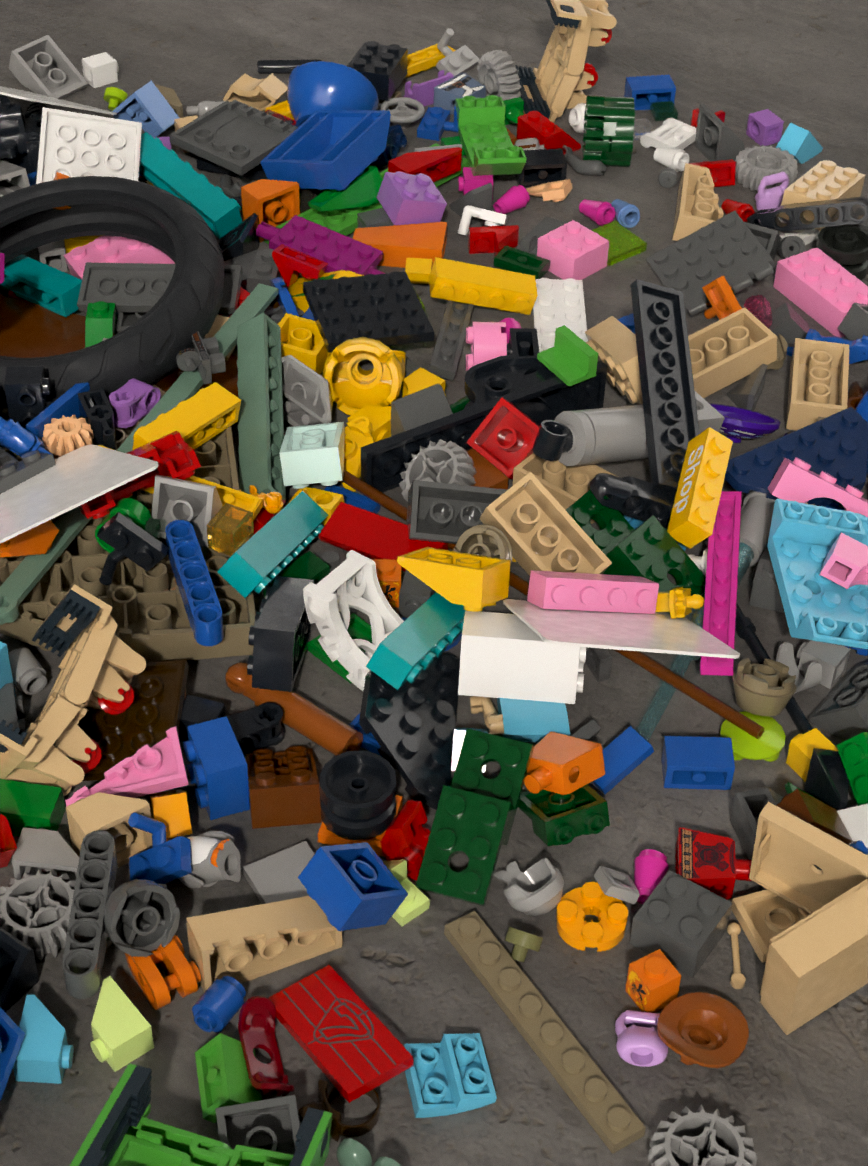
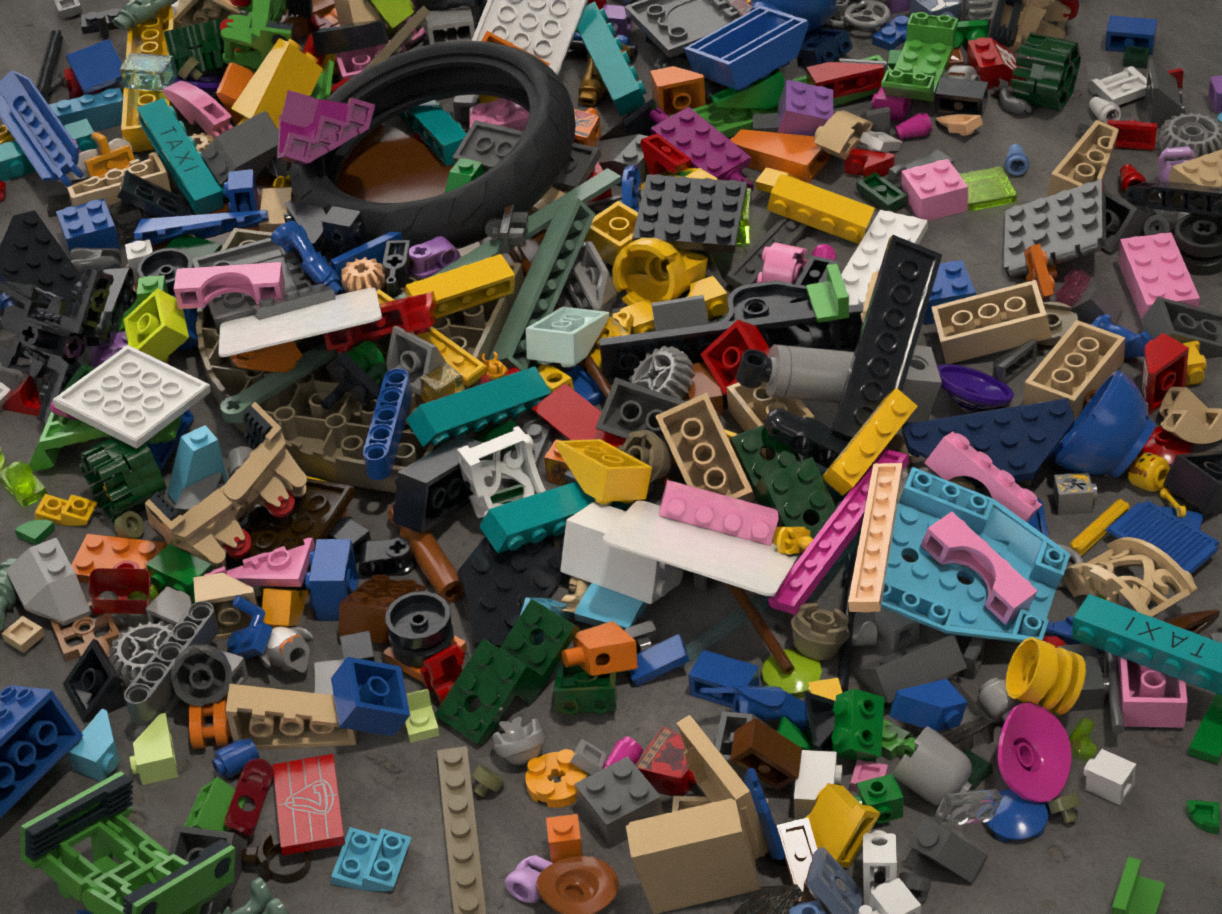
camera: 30 degrees right, 0 degrees up
(296, 842) = (357, 646): none -> brick
(462, 214) = (841, 133): none -> tan brick
(597, 211) = (991, 153): dark pink cone -> none
(761, 772) = (765, 702): none -> blue animal
(791, 577) = (876, 538): none -> light nougat plate

